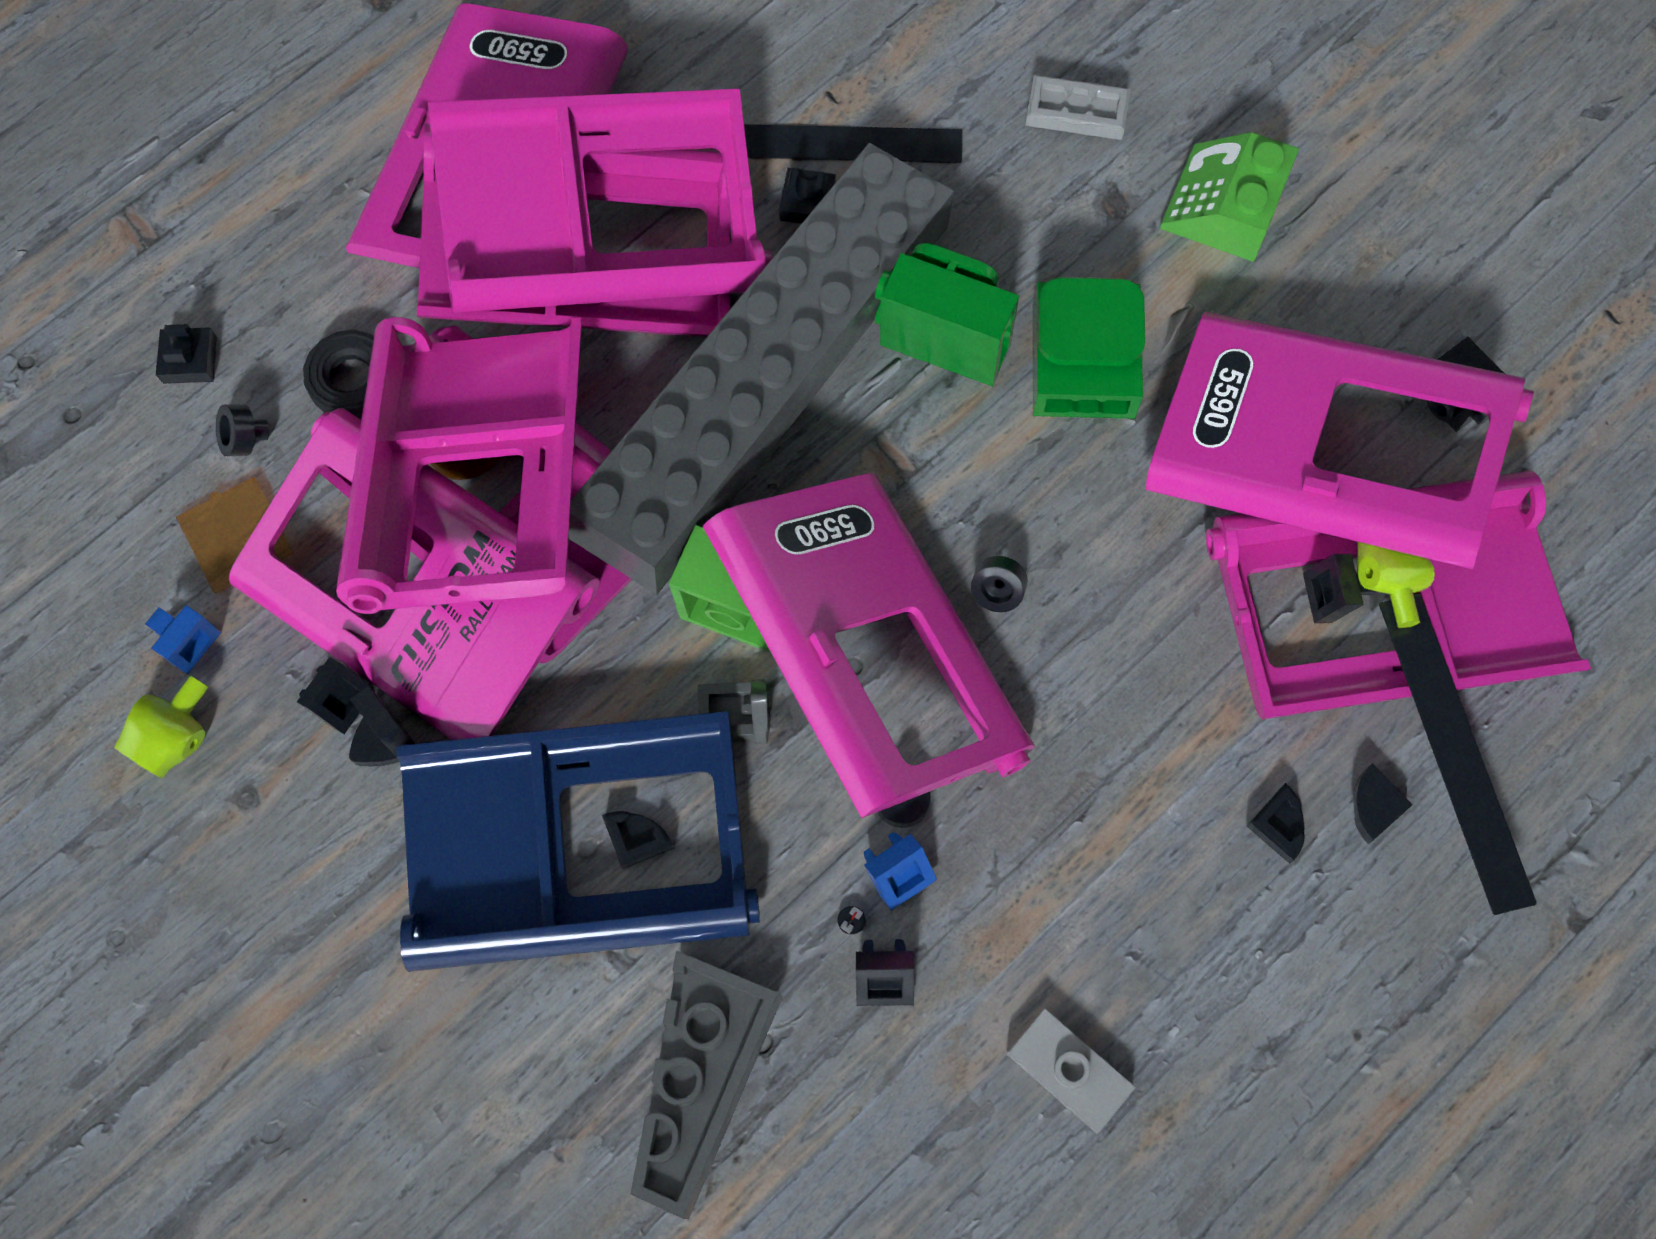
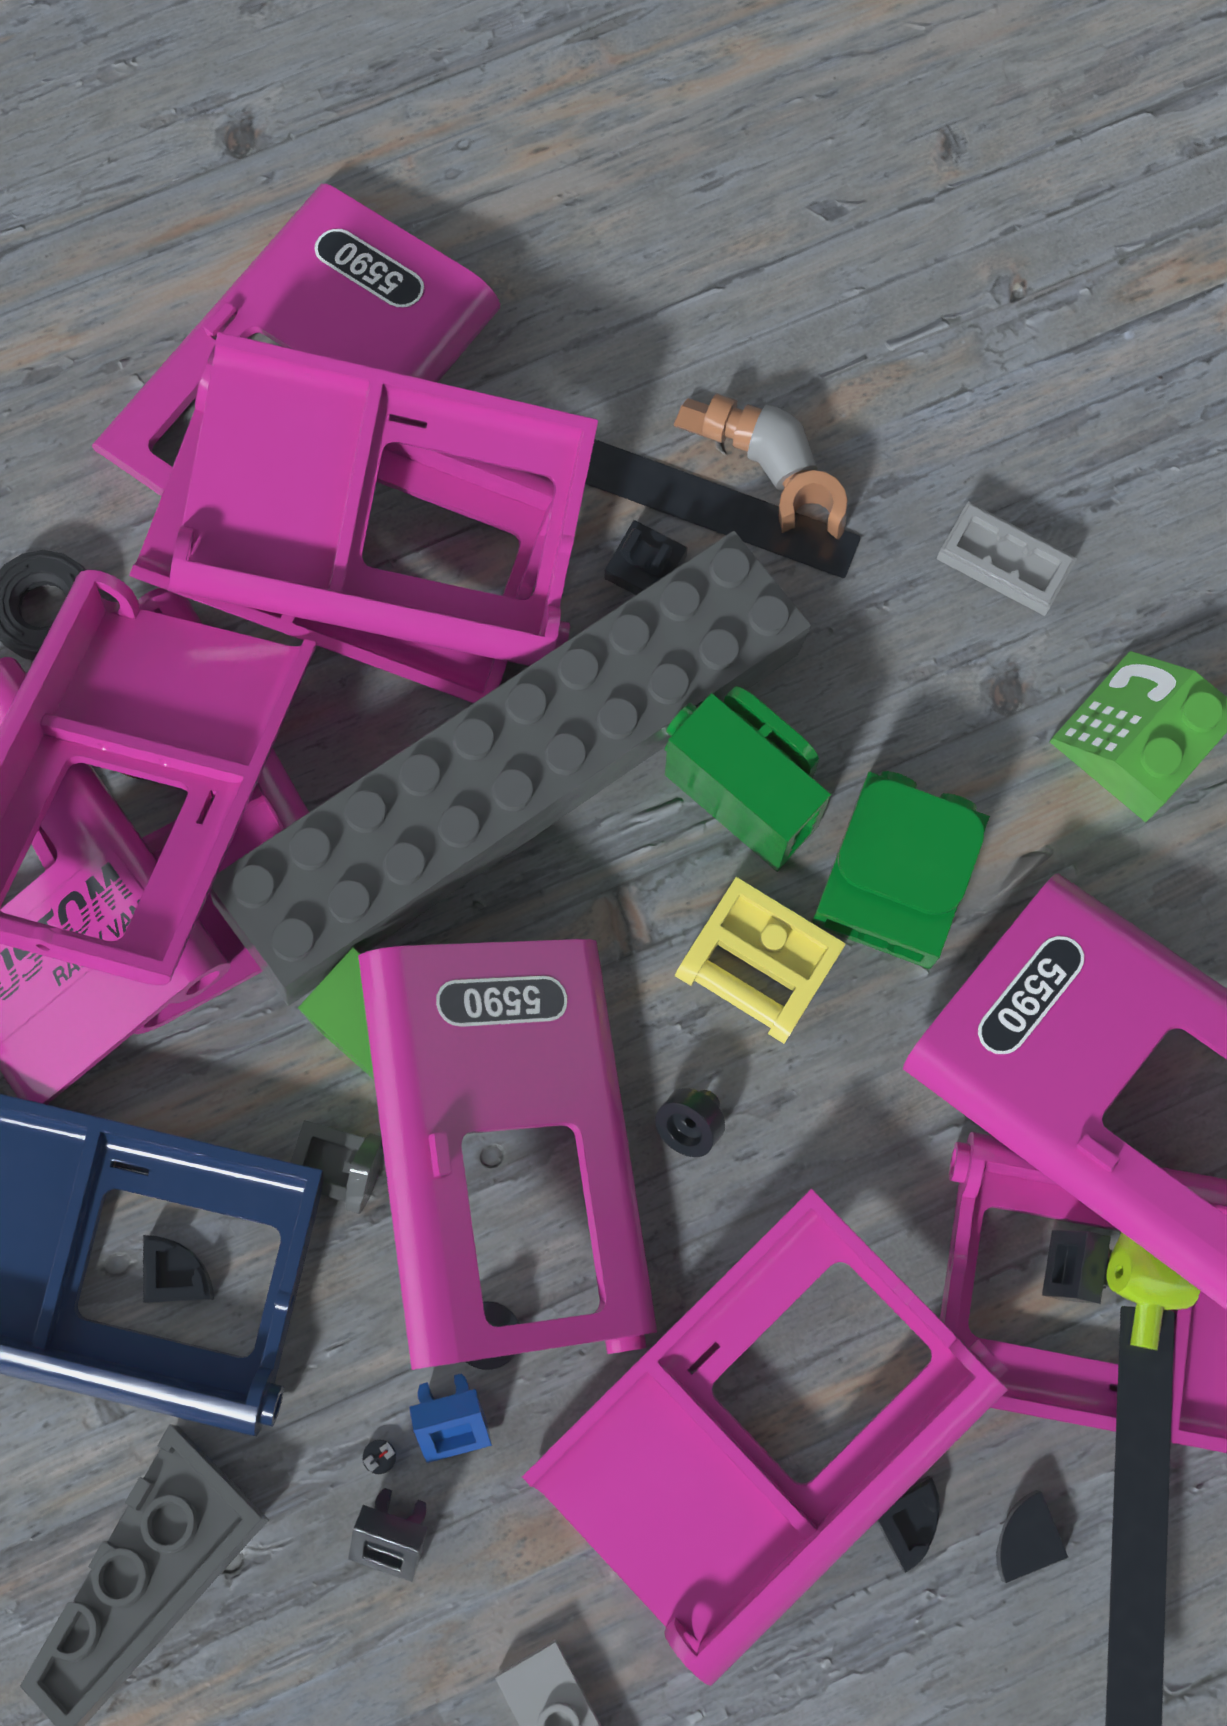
camera: 15 degrees right, 5 degrees up
(880, 83) = (779, 446): none -> nougat piece
(1010, 434) = (770, 941): none -> light yellow plate
(1111, 865) = (697, 1505): none -> dark pink piece

